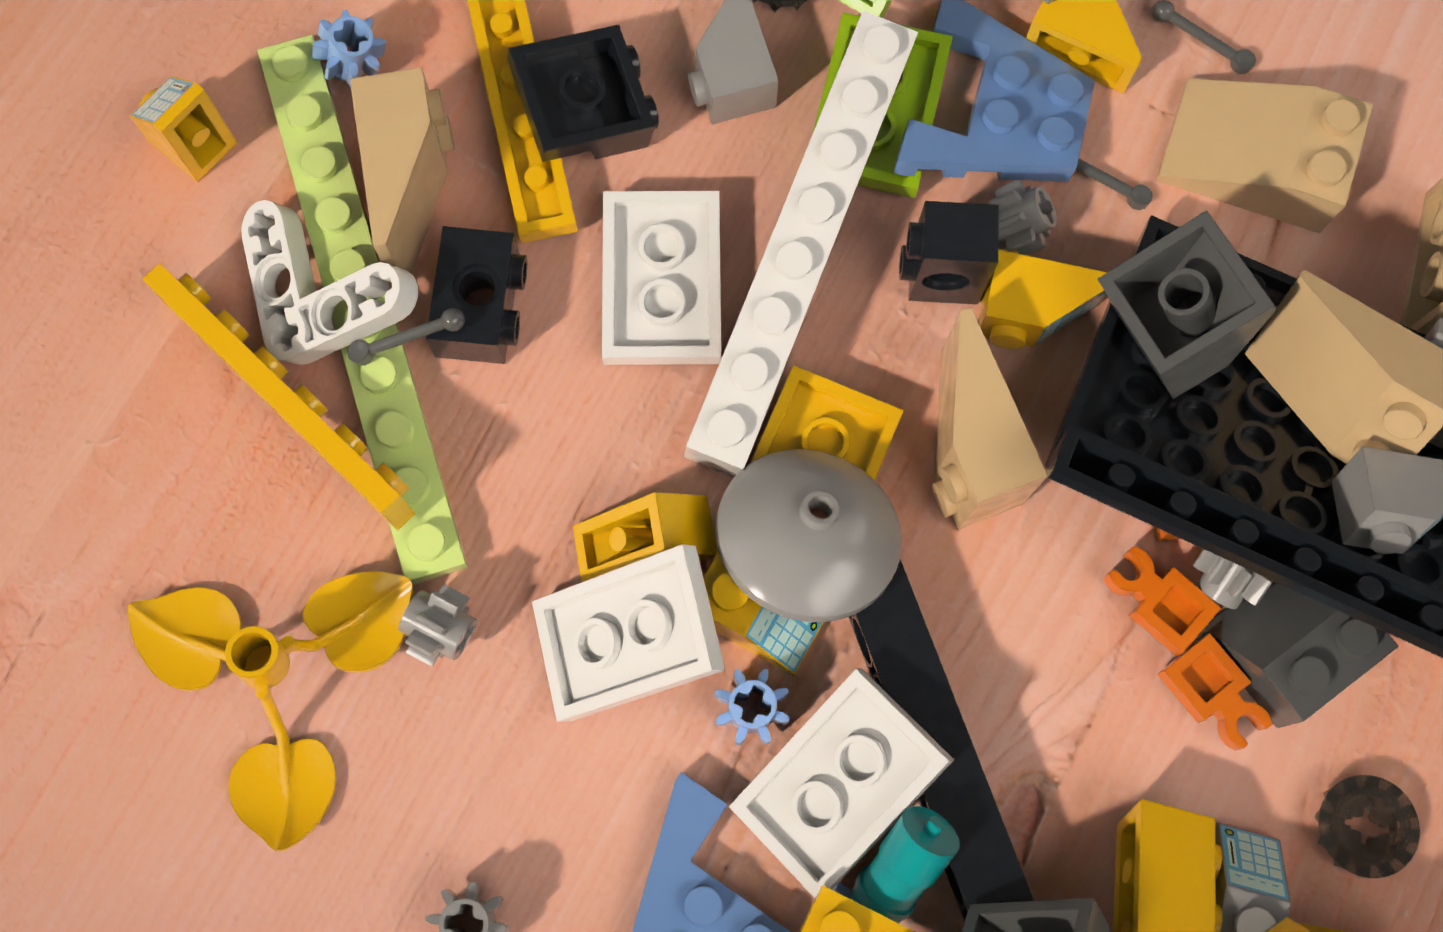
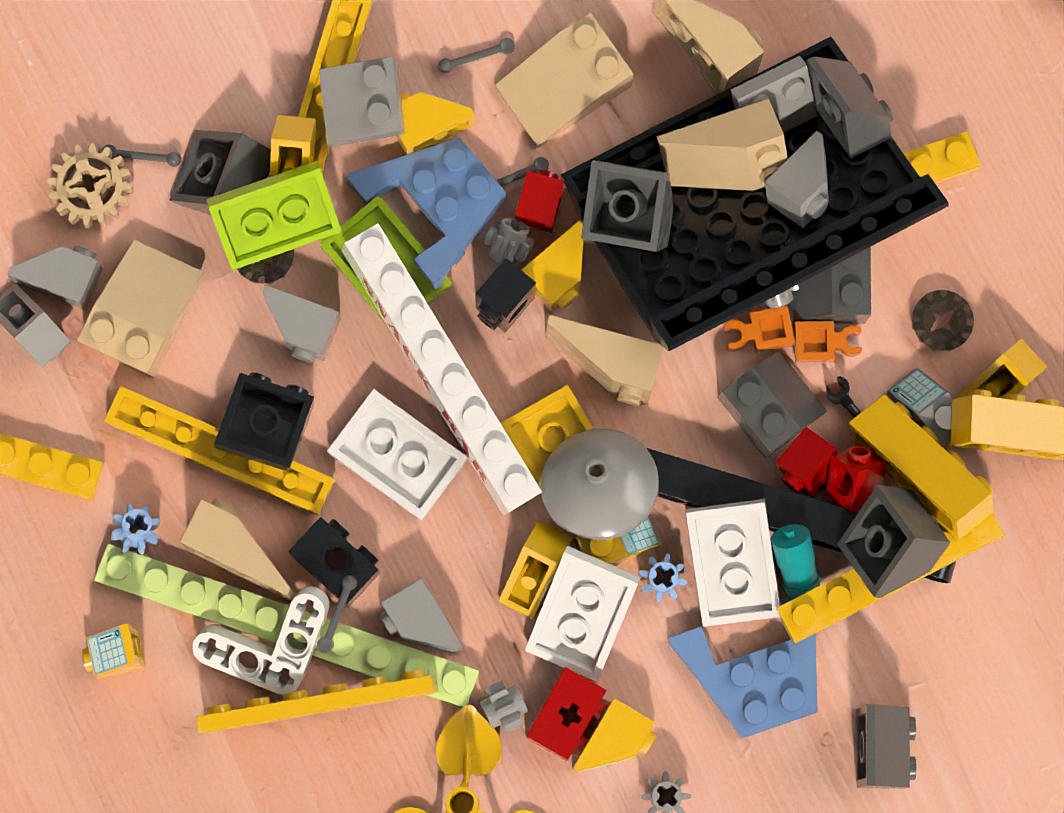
camera: 55 degrees left, 5 degrees up
(451, 700) = (568, 691): none -> red brick
(478, 442) = (419, 618): none -> light grey slope
(499, 800) = (617, 738): none -> yellow slope
(1046, 785) = (806, 462): none -> red brick
(1077, 860) = (854, 476): none -> red brick
(1081, 681) = (771, 404): none -> dark grey slope
(1098, 219) = (540, 200): none -> red brick
(1163, 770) = (843, 398): none -> black hand

